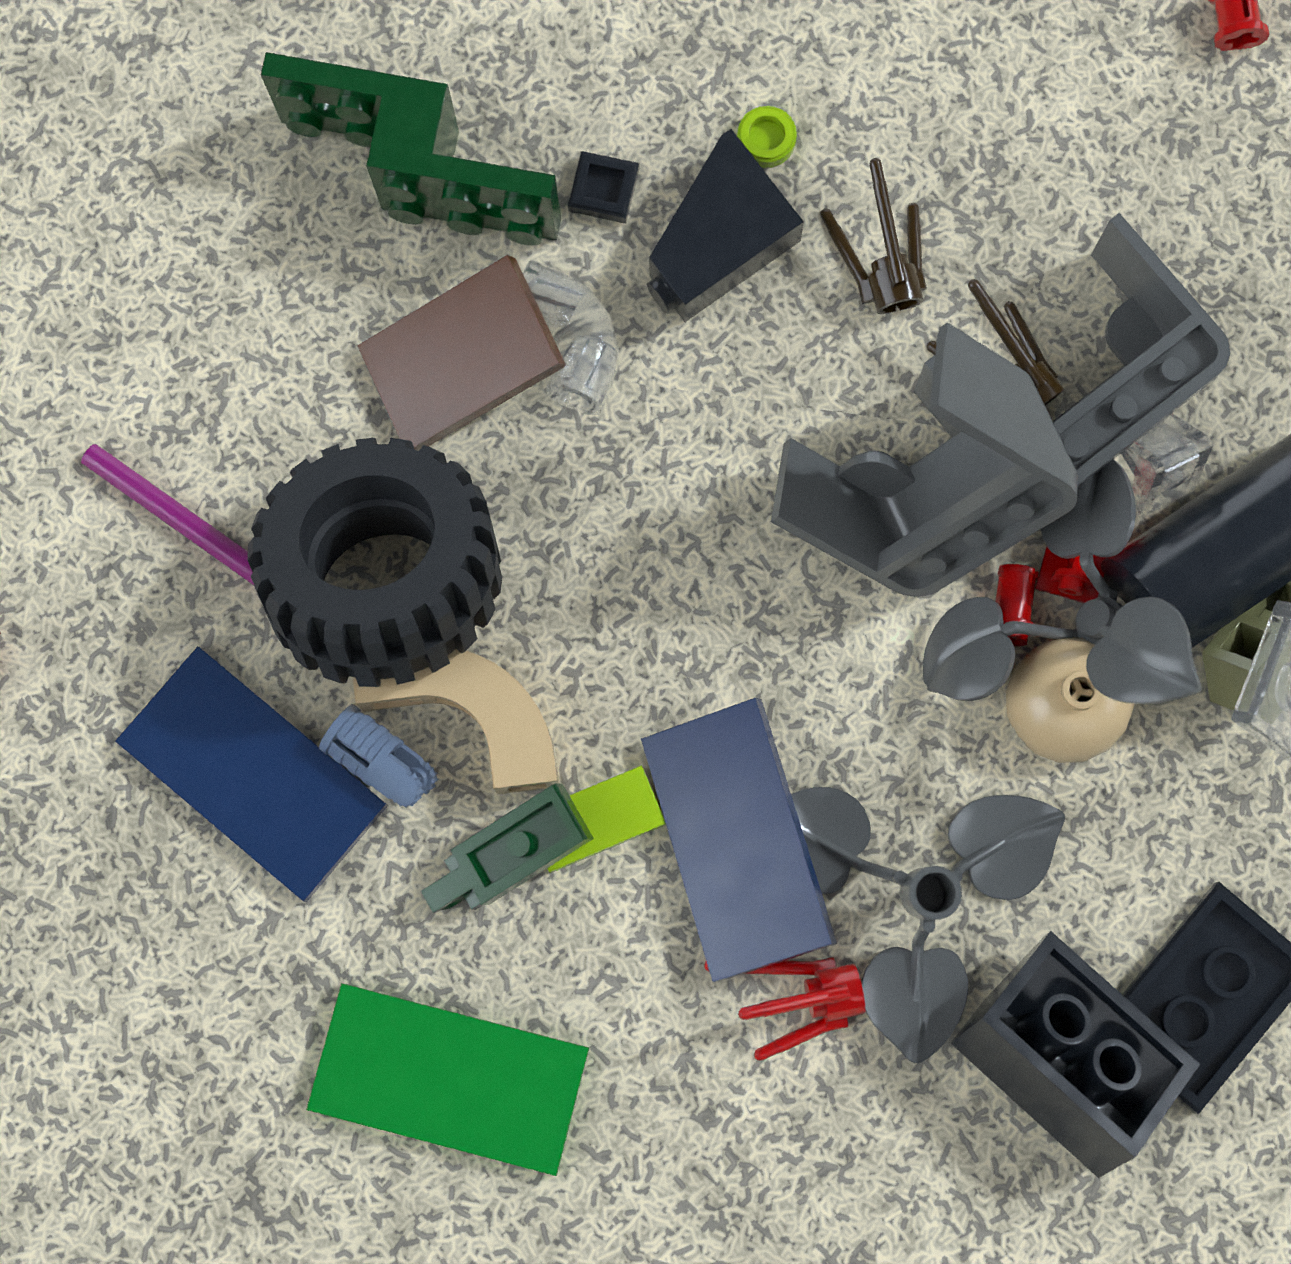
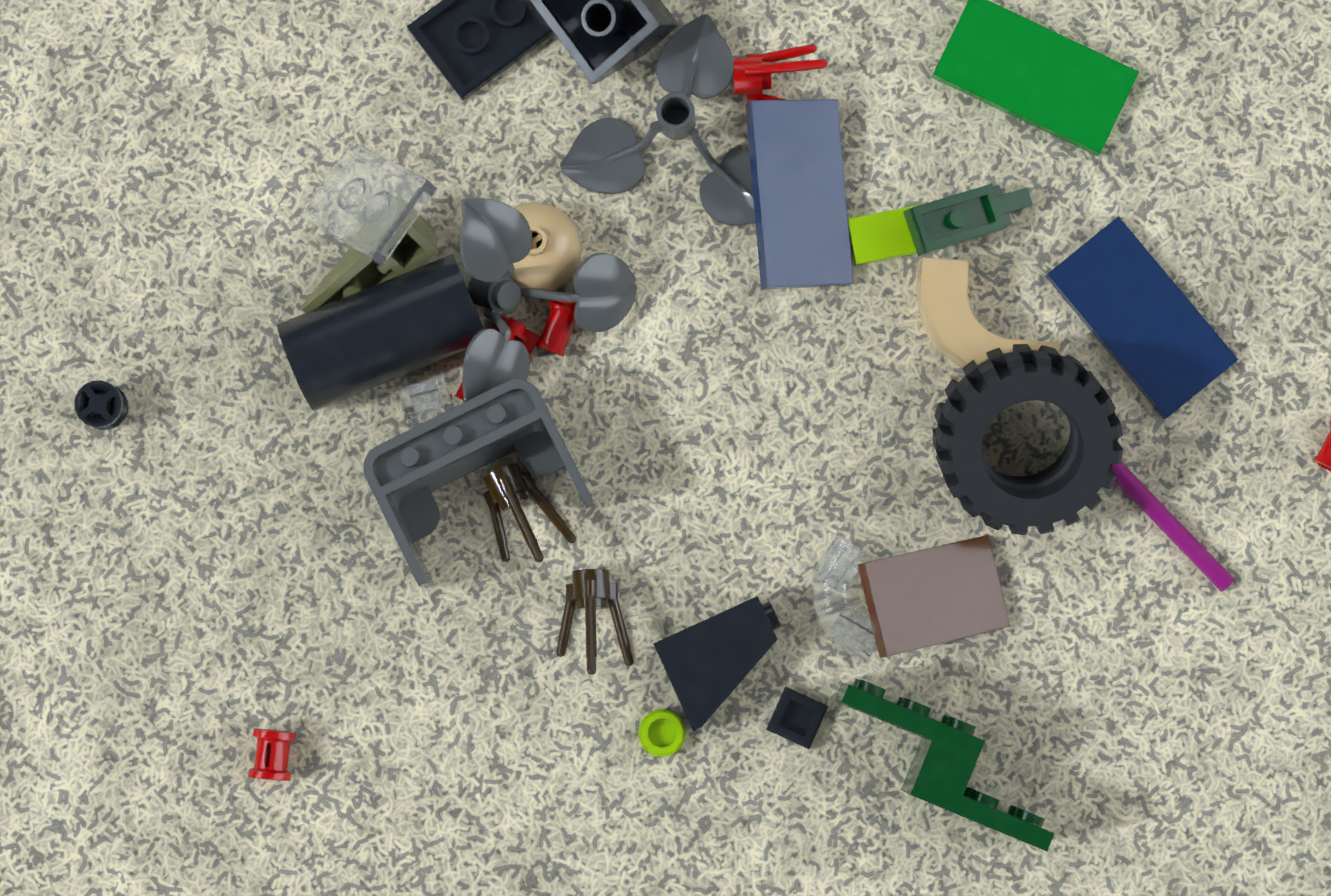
camera: 175 degrees left, 5 degrees up
(378, 757) = (1046, 305): sand blue hinge -> none
(953, 506) = (587, 396): dark grey windscreen -> none

